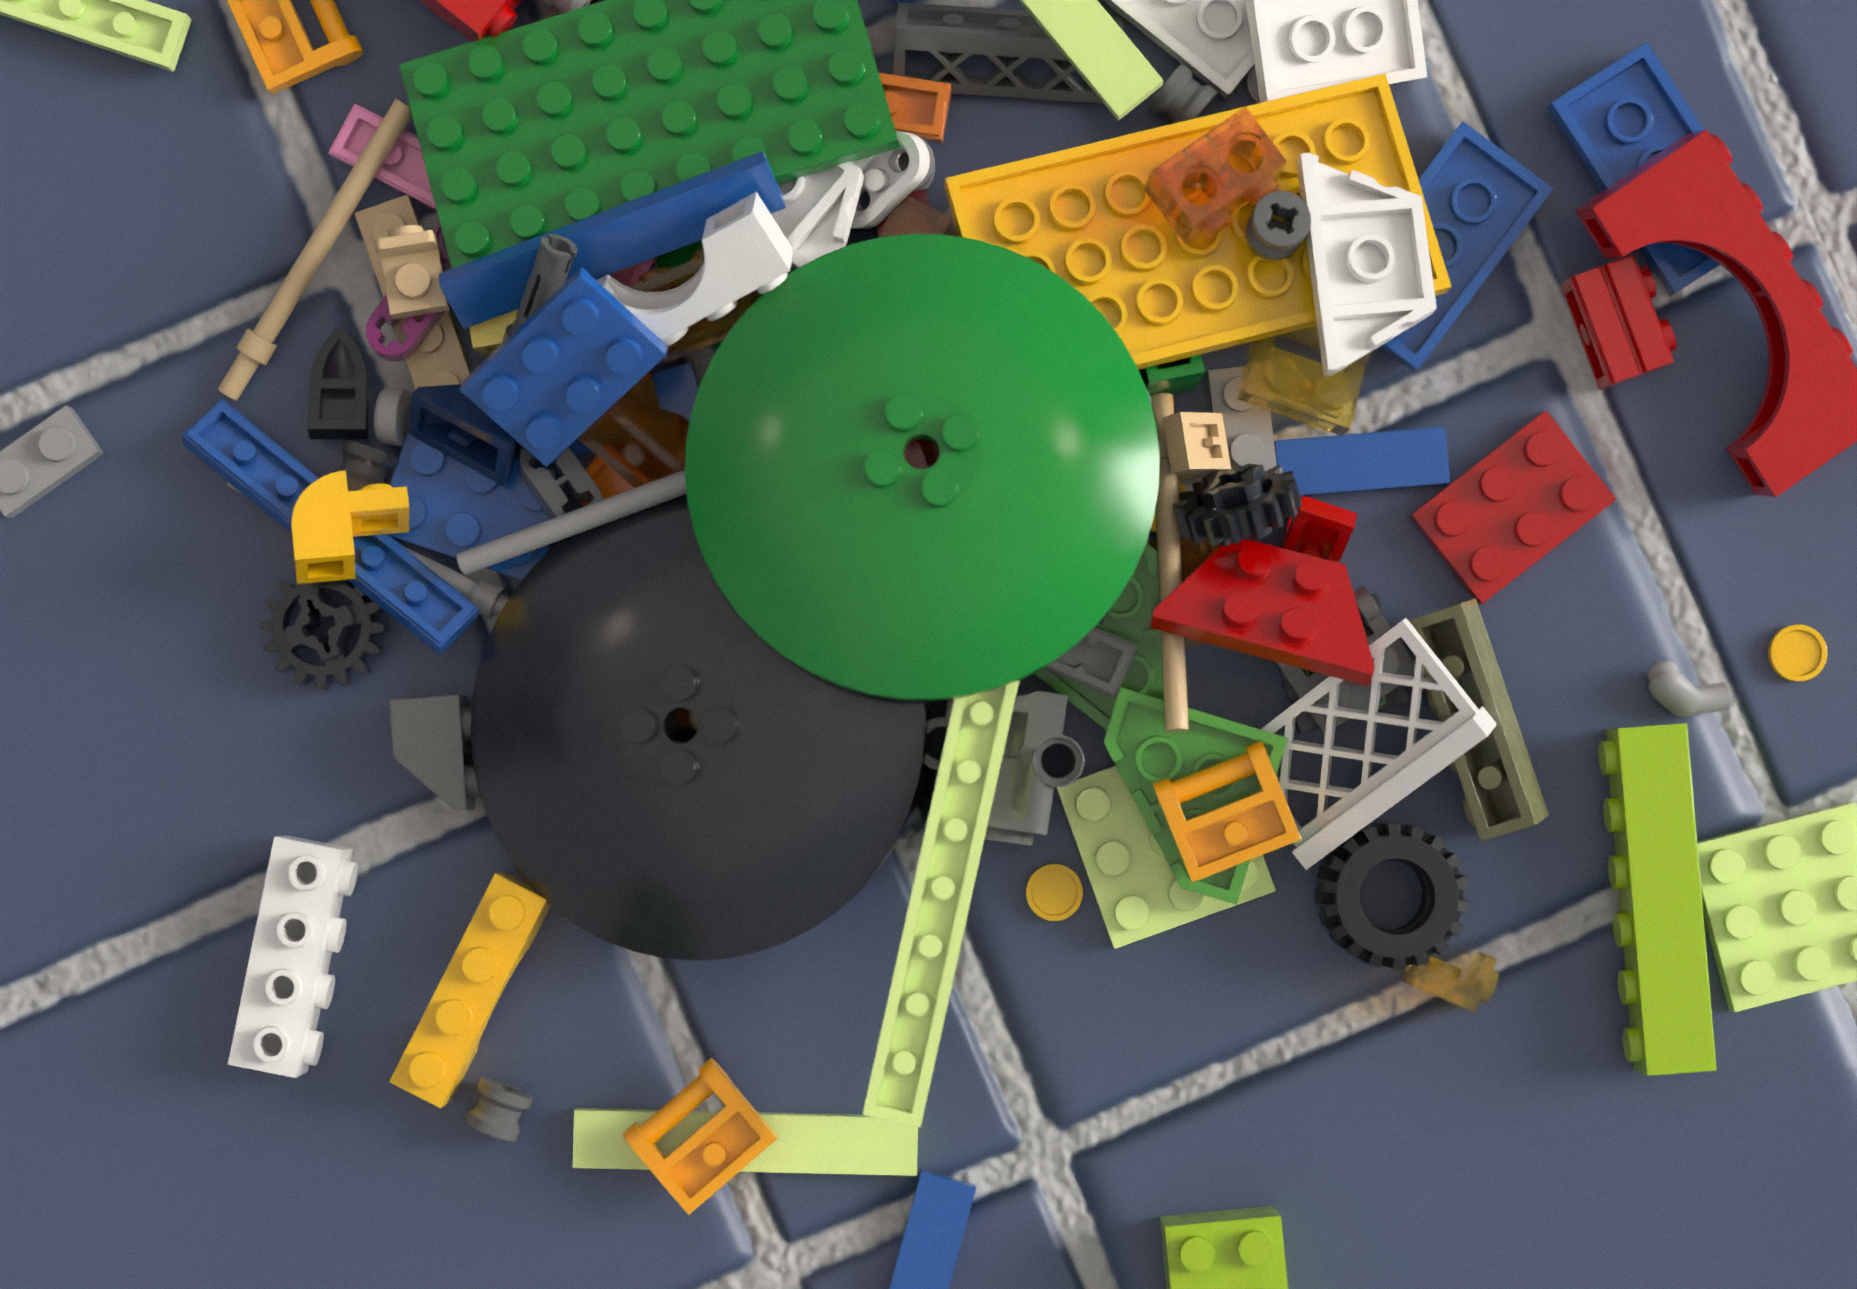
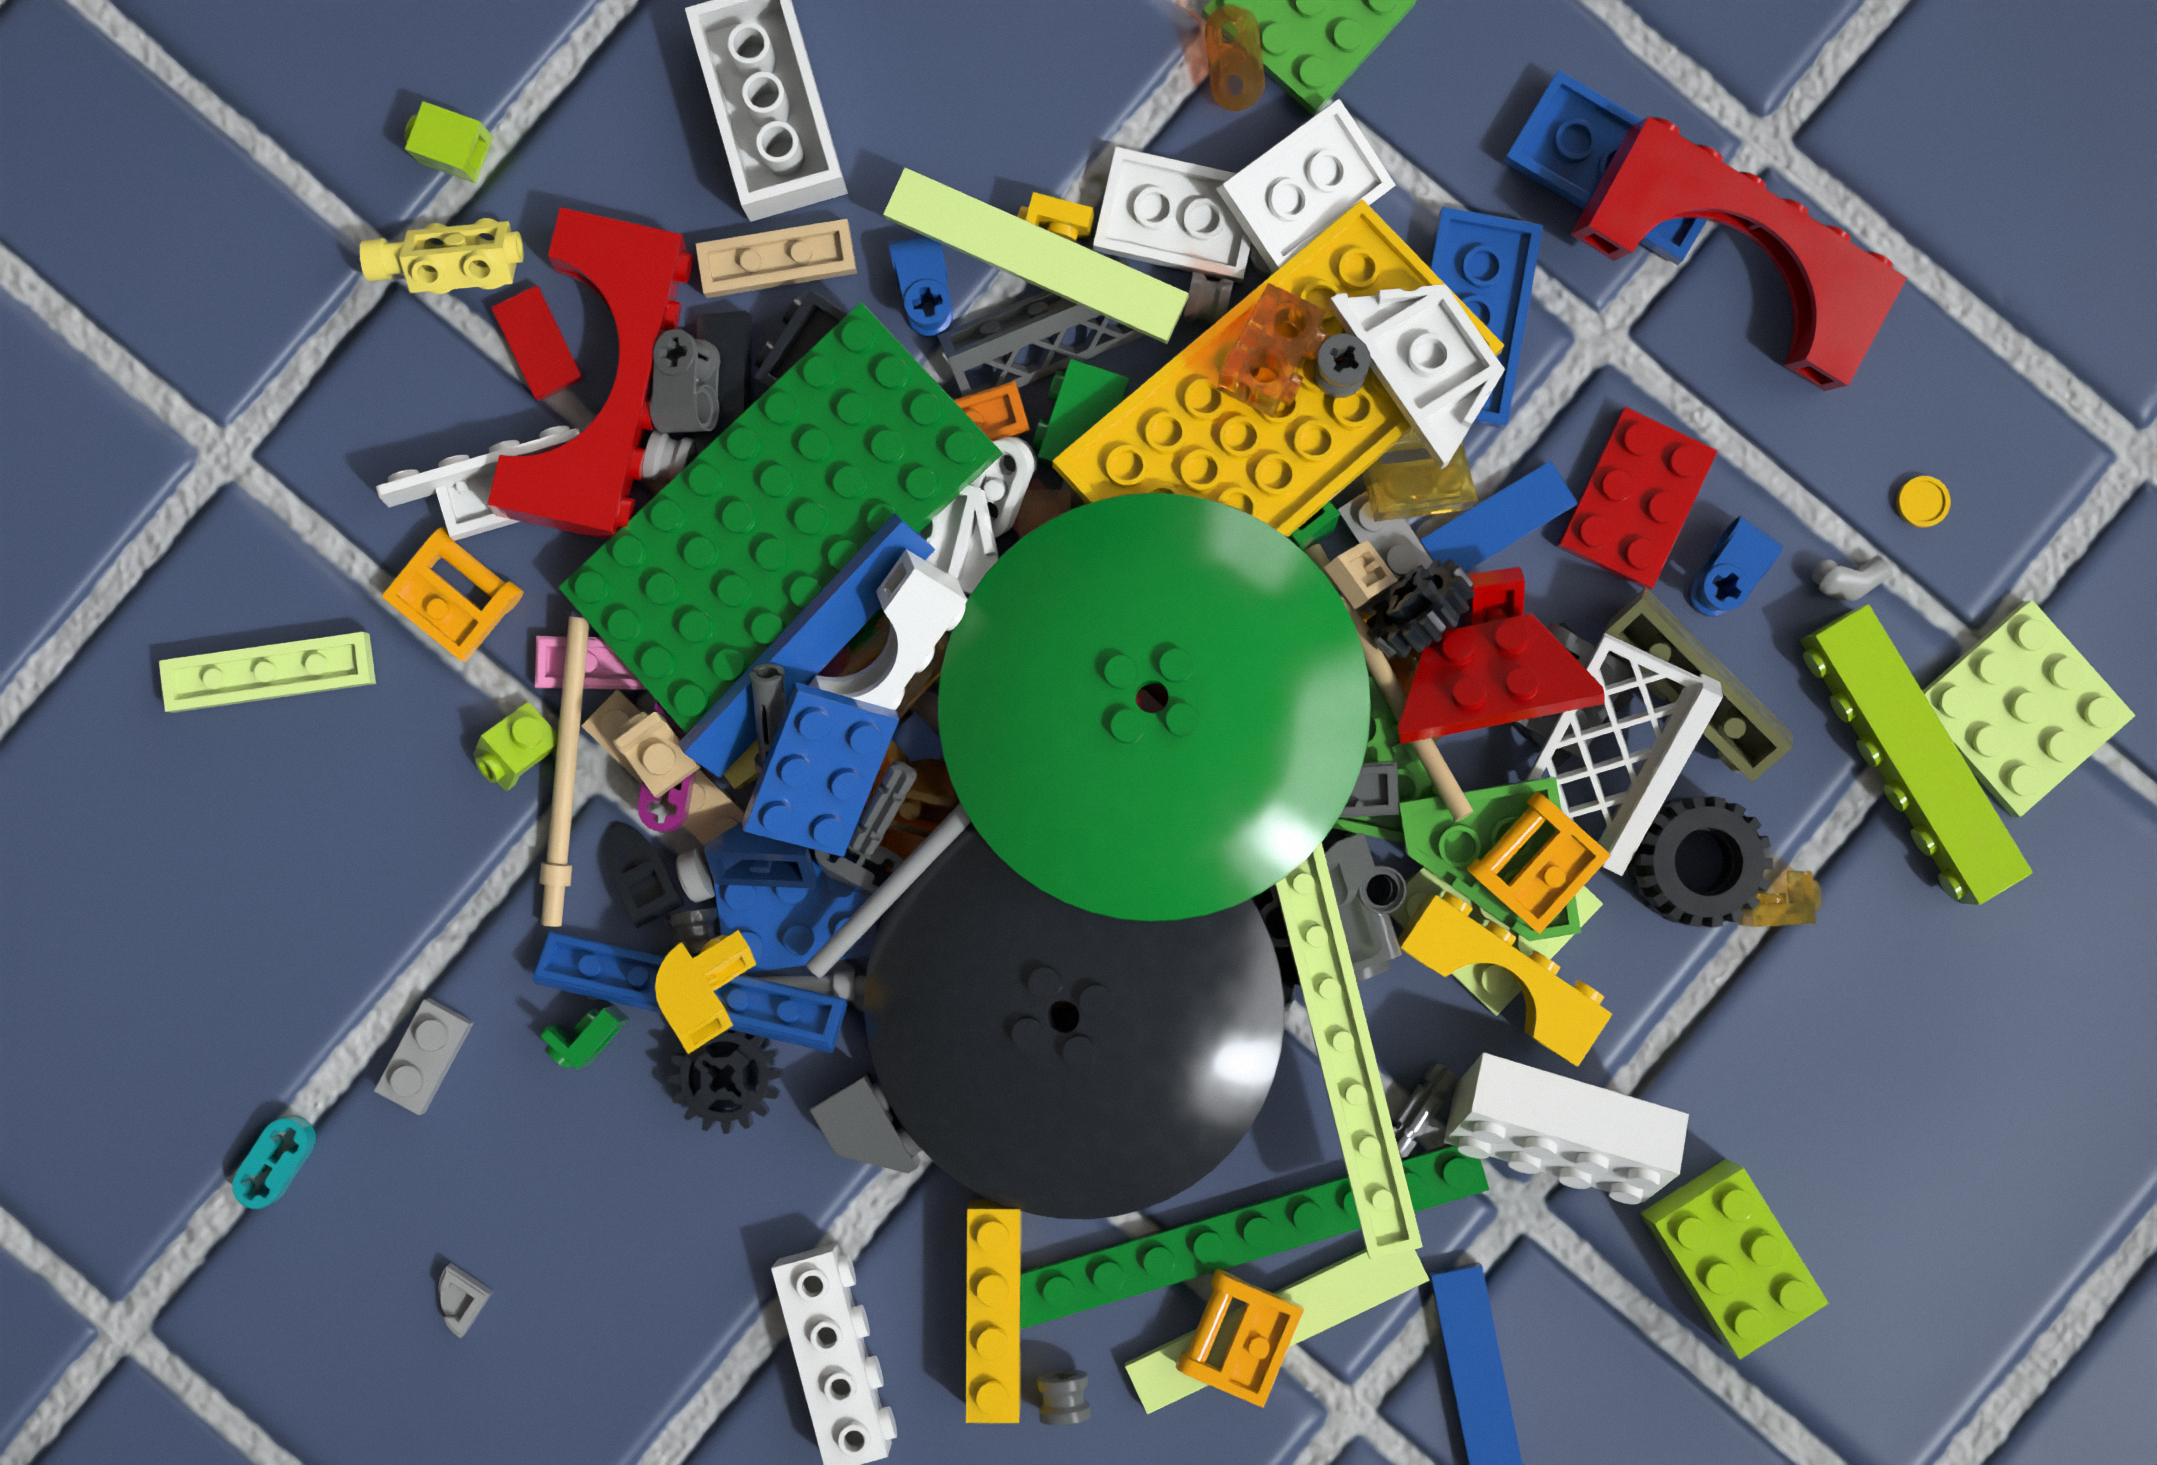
camera: 25 degrees left, 0 degrees up
(216, 521) = (594, 1034): none -> green bracket
(278, 200) = (514, 746): none -> lime bracket
(608, 437) = (883, 807): none -> dark grey axle
(746, 1037) = (1230, 1238): none -> green plate
(993, 1003) = (1423, 1106): none -> dark grey axle
(1007, 133) = (1081, 400): none -> green brick
(1054, 892) = (1423, 993): yellow piece -> none
(1123, 1090) = (1566, 1129): none -> white brick
(1175, 974) = (1556, 1013): none -> yellow arch
(1579, 622) = (1738, 563): none -> blue piece
(1619, 321) = (1649, 306): red brick -> none

